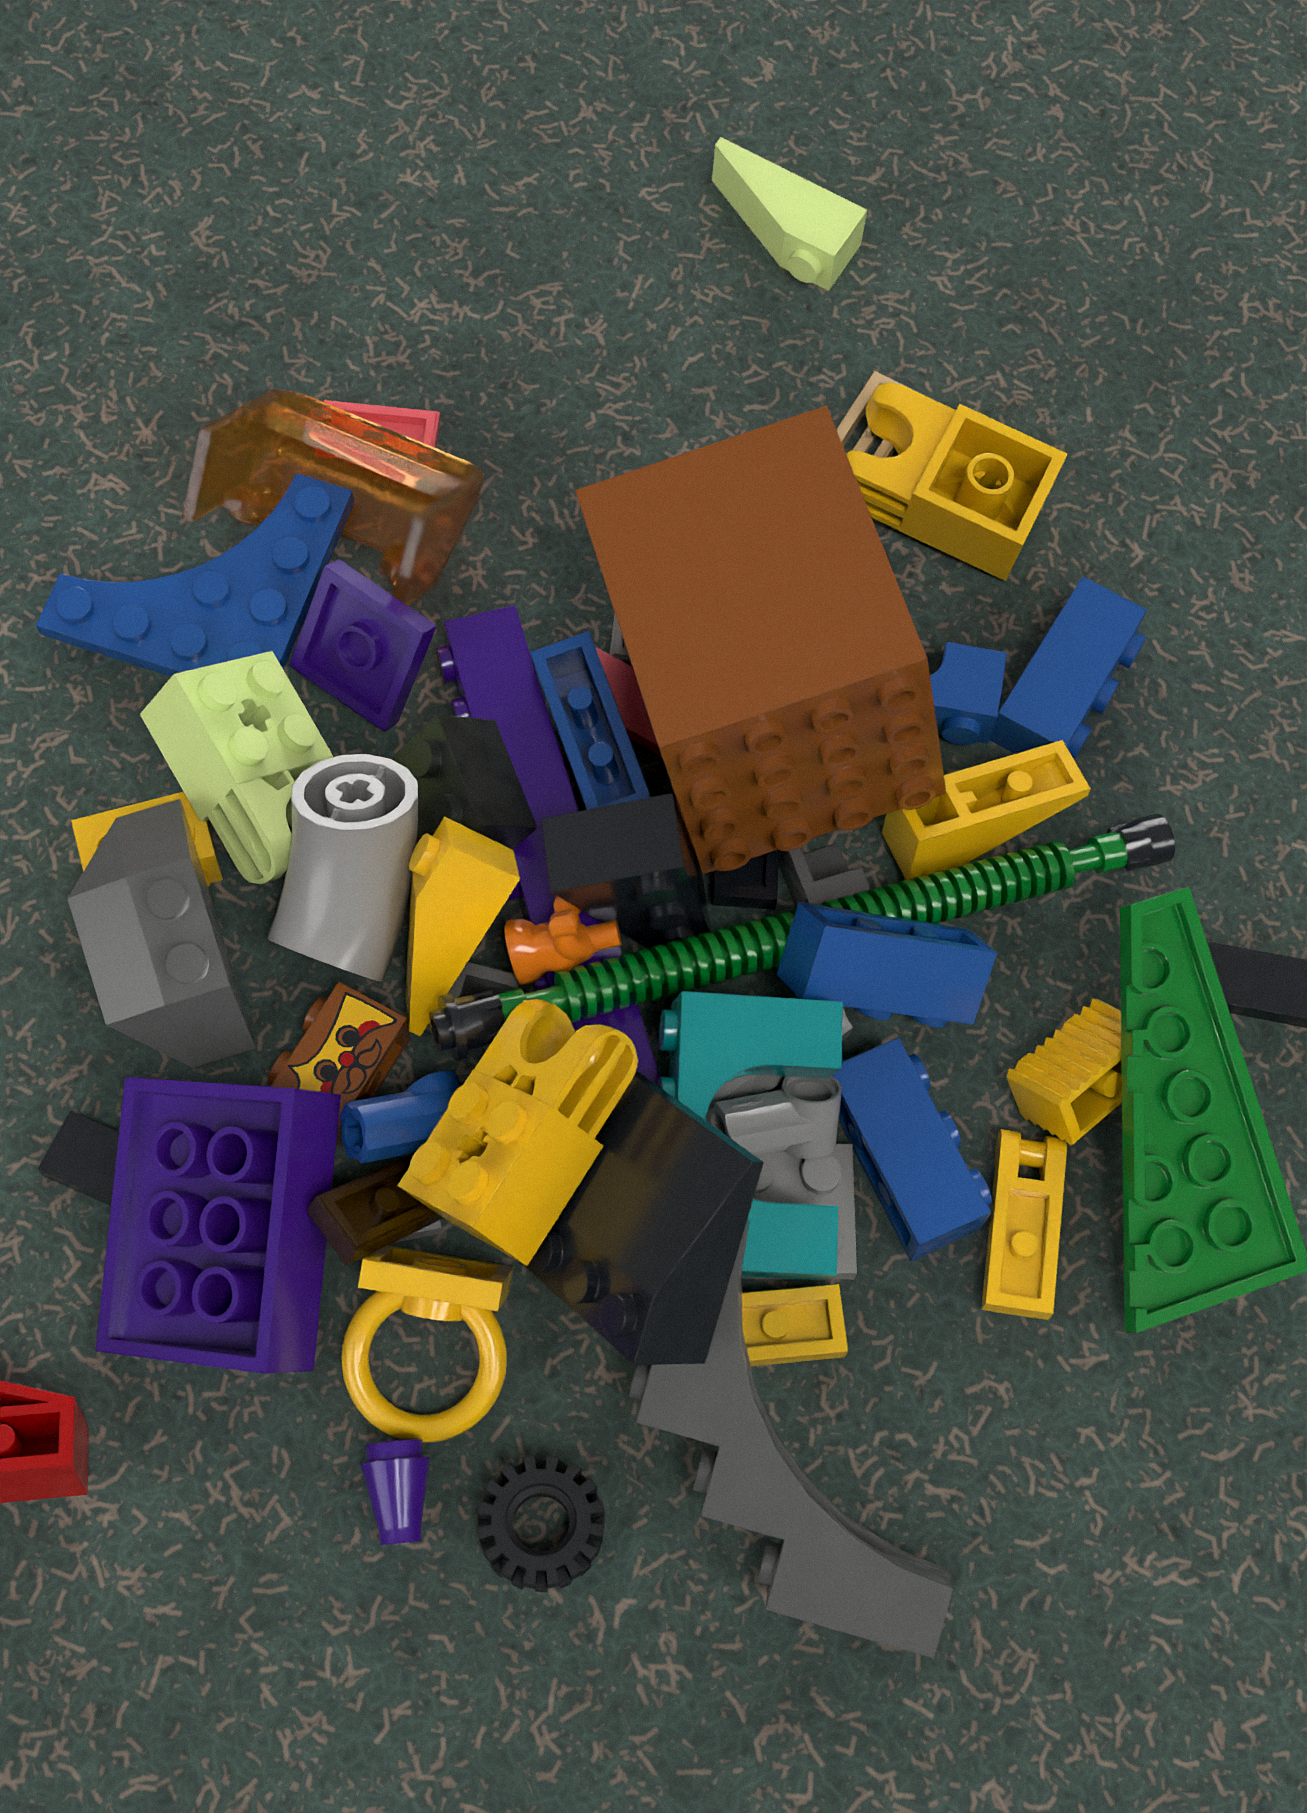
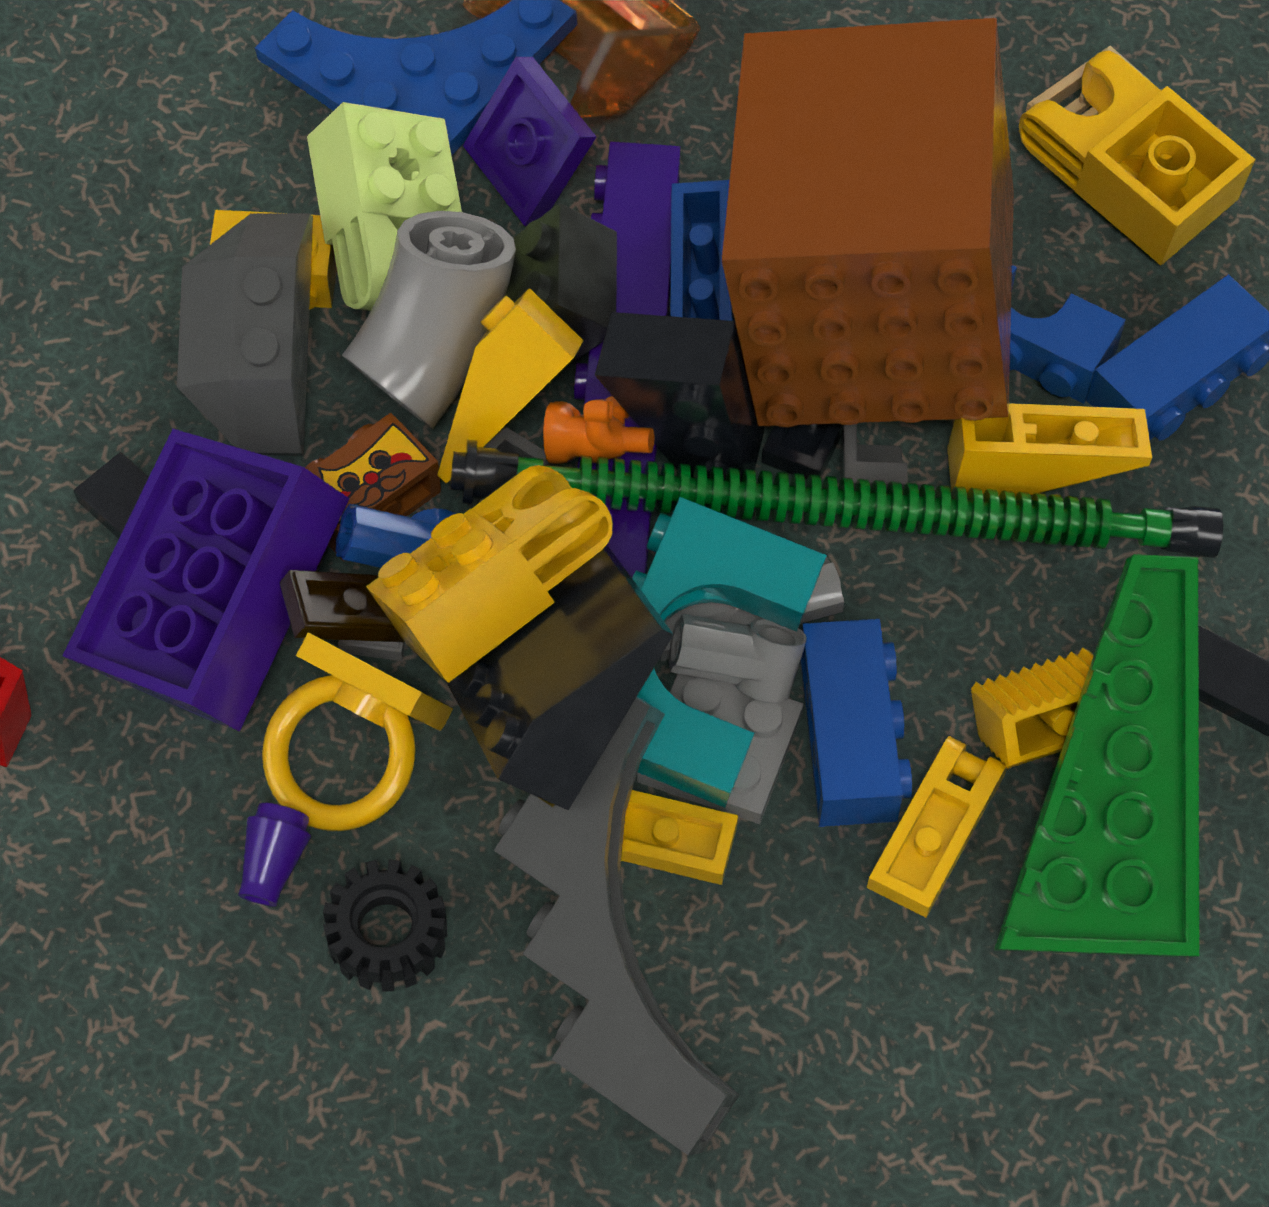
camera: 25 degrees right, 5 degrees down
(886, 965) = (892, 550): blue brick -> none

